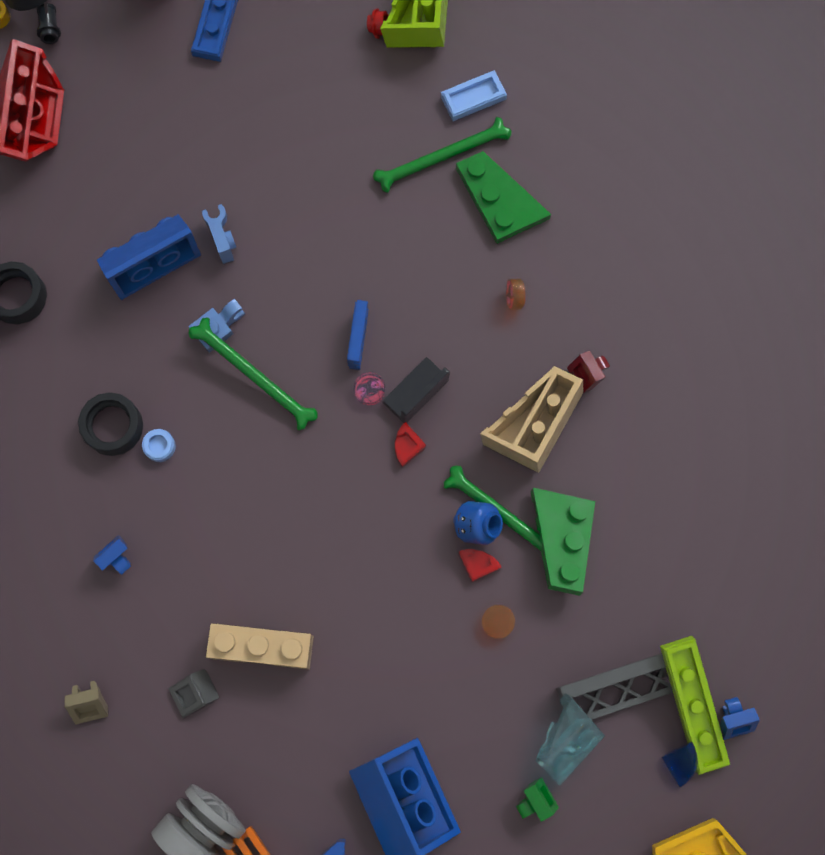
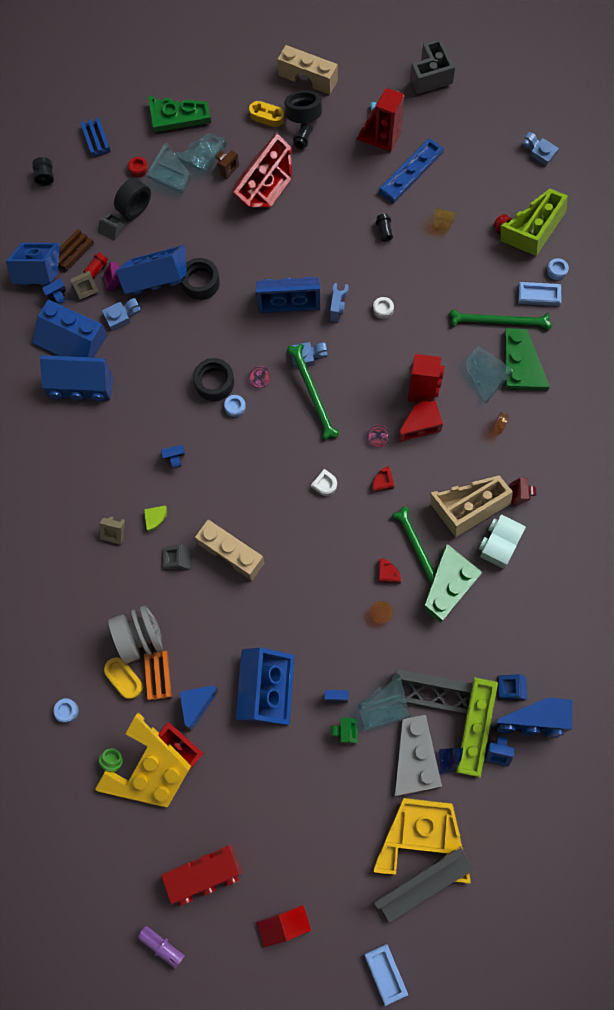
camera: 35 degrees right, 5 degrees down
(134, 654) = (155, 517): none -> lime tile
(170, 388) = (259, 376): none -> clear purple tile
(222, 95) = (383, 222): none -> black pin
(283, 212) = (383, 307): none -> white tile
(299, 48) = (445, 216): none -> clear yellow tile
(335, 489) = (325, 483): none -> white tile
(357, 334) = (388, 399): blue tile -> none
(393, 285) = (425, 378): none -> red wedge
(416, 339) = (422, 421): none -> red slope
(416, 390) = (407, 450): black panel -> none
(463, 234) = (487, 372): none -> clear light blue wing
(478, 51) = (557, 269): none -> light blue tile
(478, 522) = (400, 546): blue head -> none
(501, 763) = (339, 696): none -> blue tile
(599, 447) = (502, 541): none -> light aqua brick
(642, 786) = (416, 761): none -> light grey wing
(707, 627) = (512, 687): none -> blue slope
(762, 649) = (546, 716): none -> blue slope

